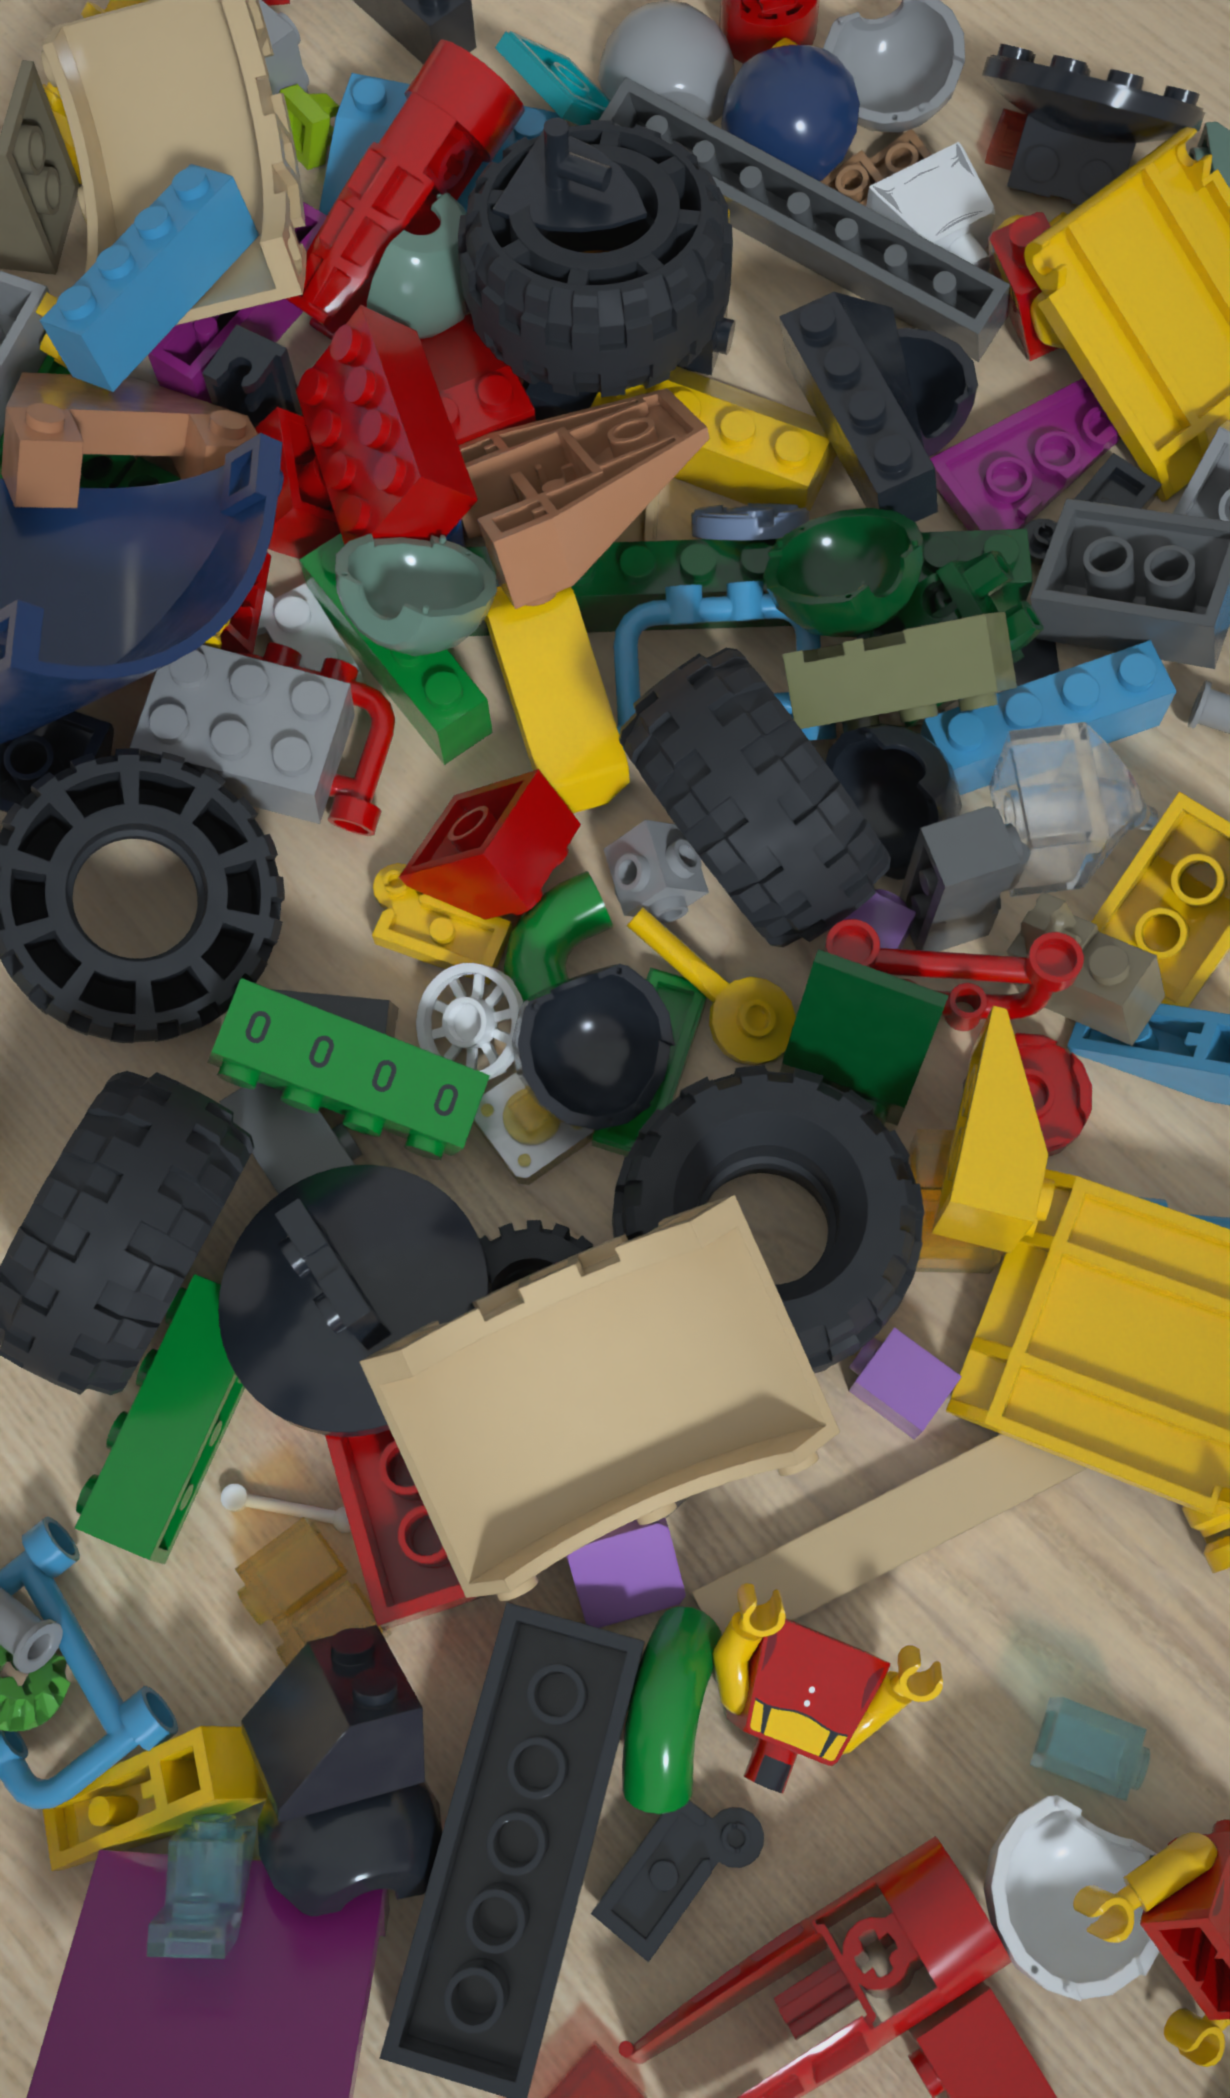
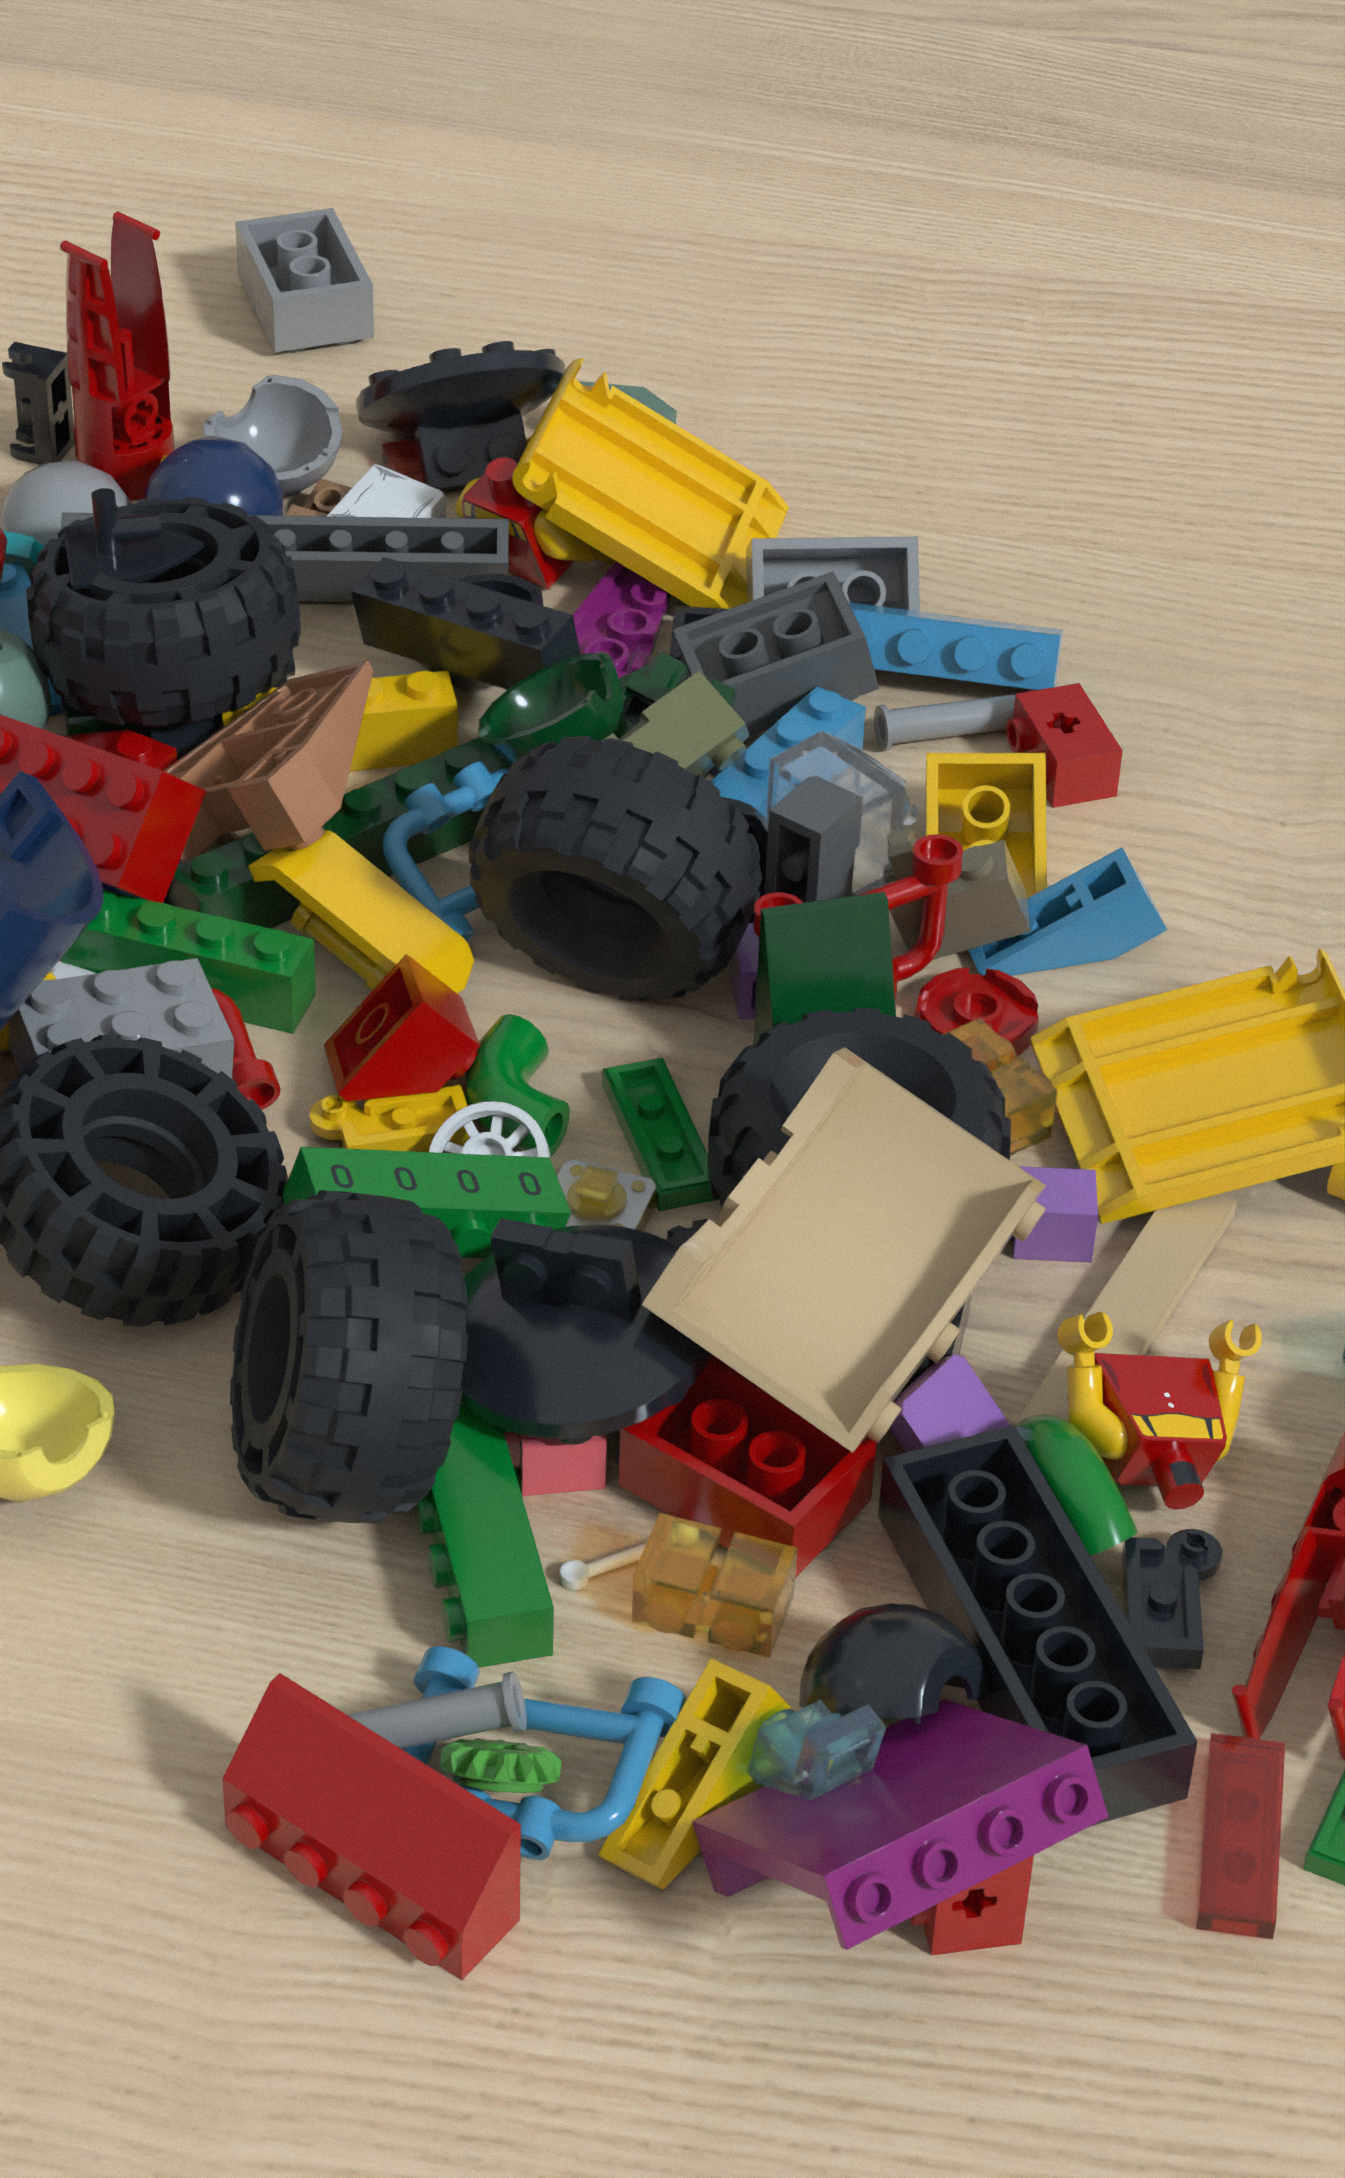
camera: 40 degrees left, 30 degrees down
(336, 1726) = (826, 1574): black slope -> none
(413, 591) = (210, 874): sand green cylinder -> none
(594, 1047) = (616, 1103): black cylinder -> none
(656, 871) = (555, 996): light grey brick -> none
(747, 1017) = (699, 1057): yellow piece -> none
(748, 522) = (424, 746): sand blue tile -> none
(997, 1150) = (994, 989): yellow slope -> none

